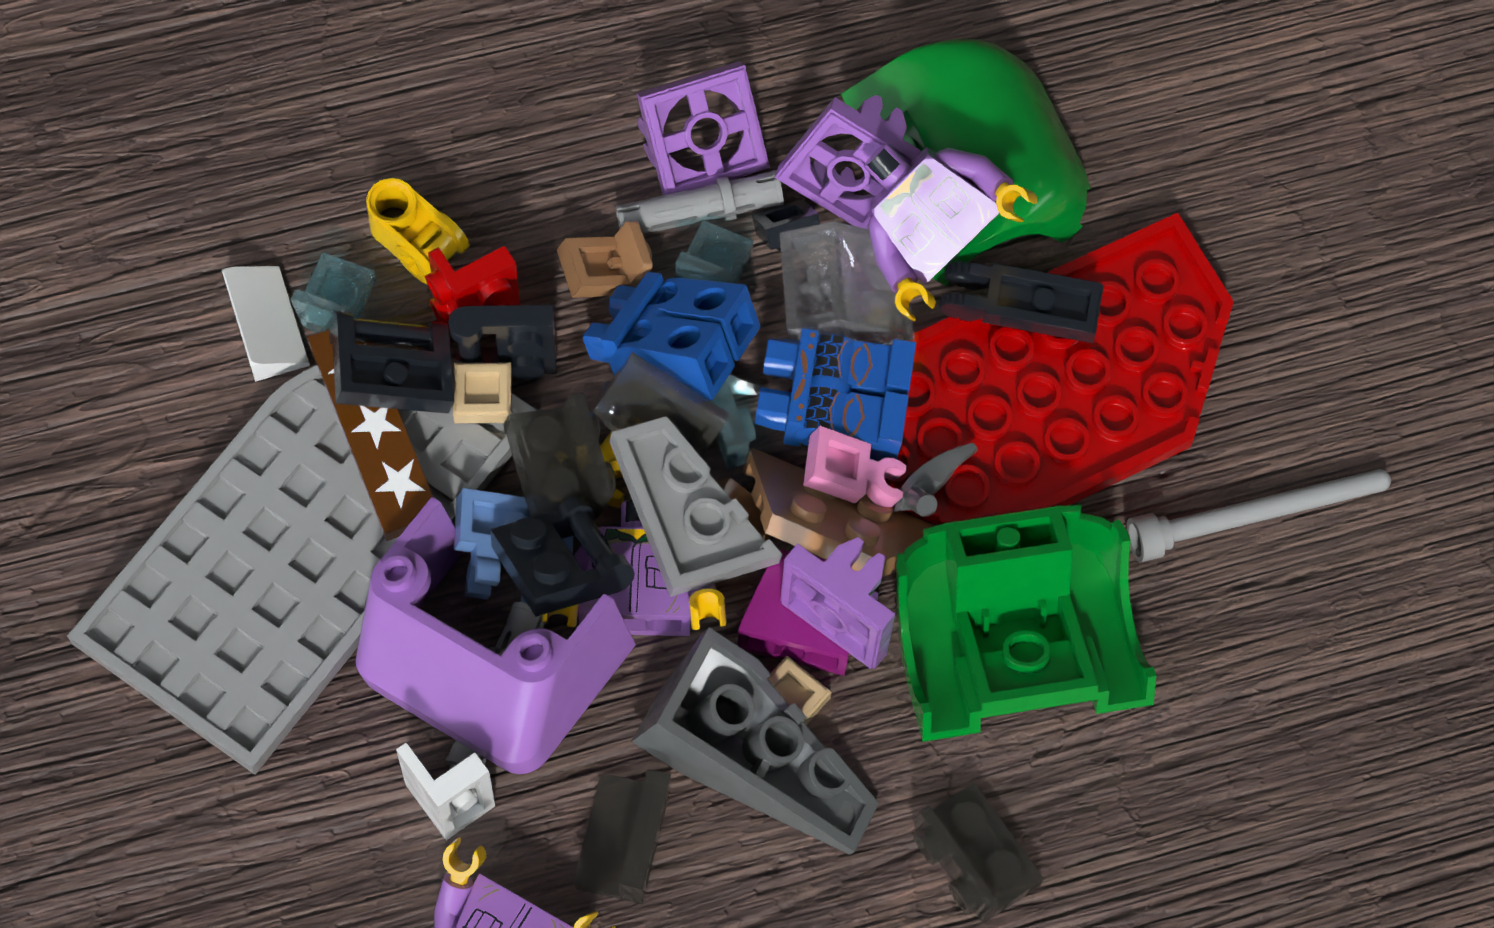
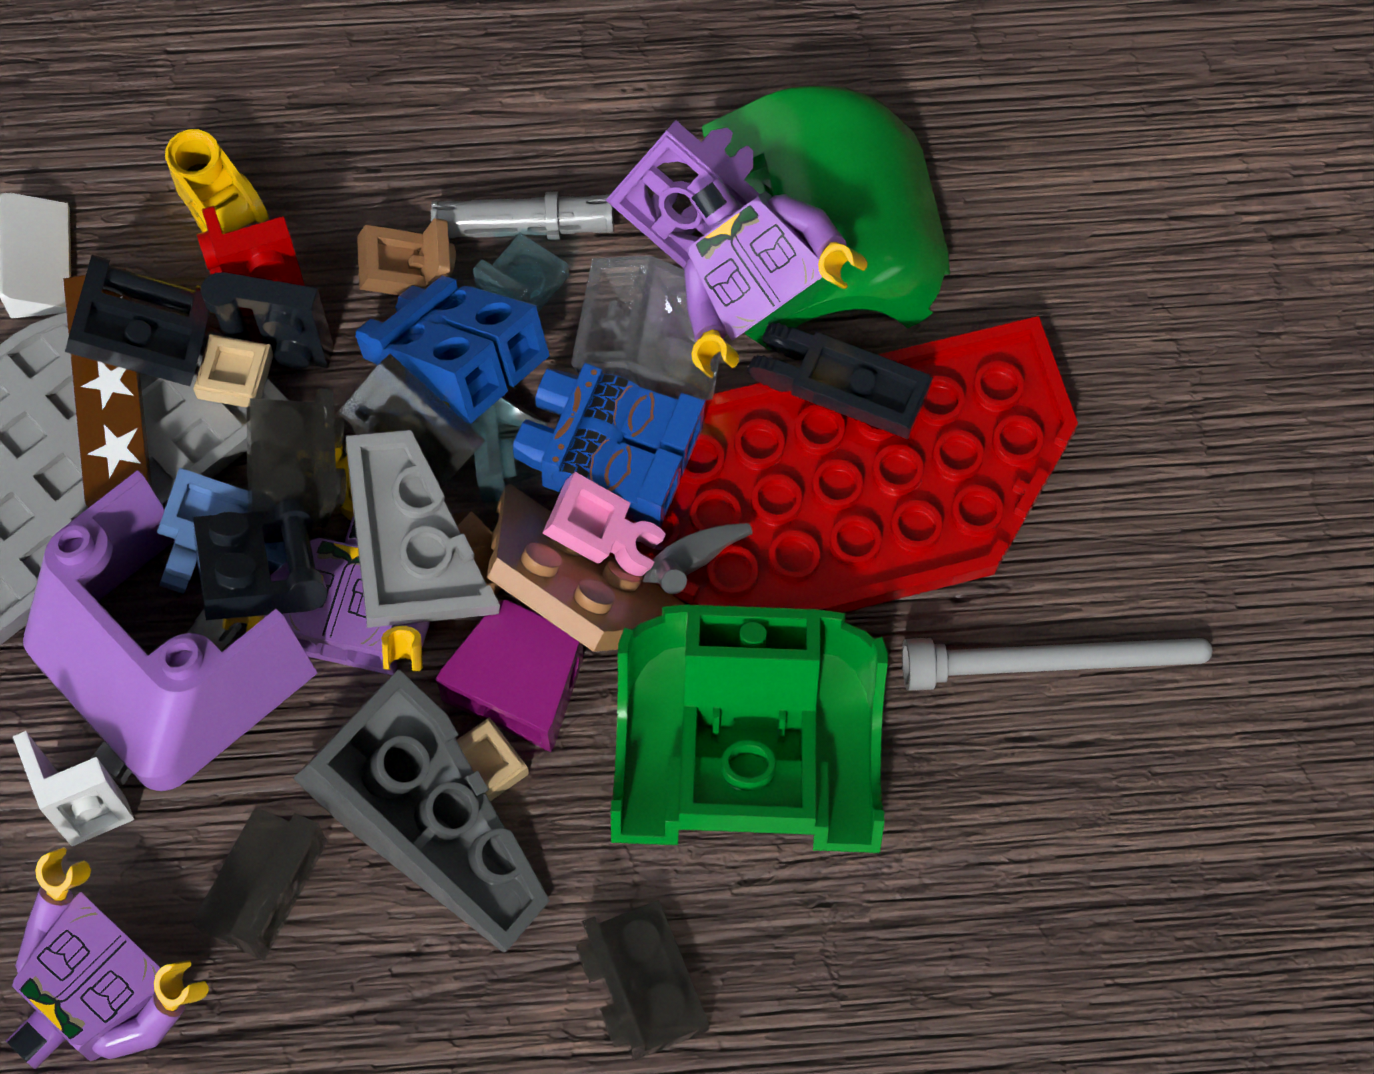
camera: 15 degrees right, 0 degrees up
(333, 287) = (113, 234): clear light blue bracket -> none
(658, 102) = (577, 88): medium lavender piece -> none
(783, 218) = (607, 245): black plate -> none
(844, 599) = (538, 664): medium lavender piece -> none

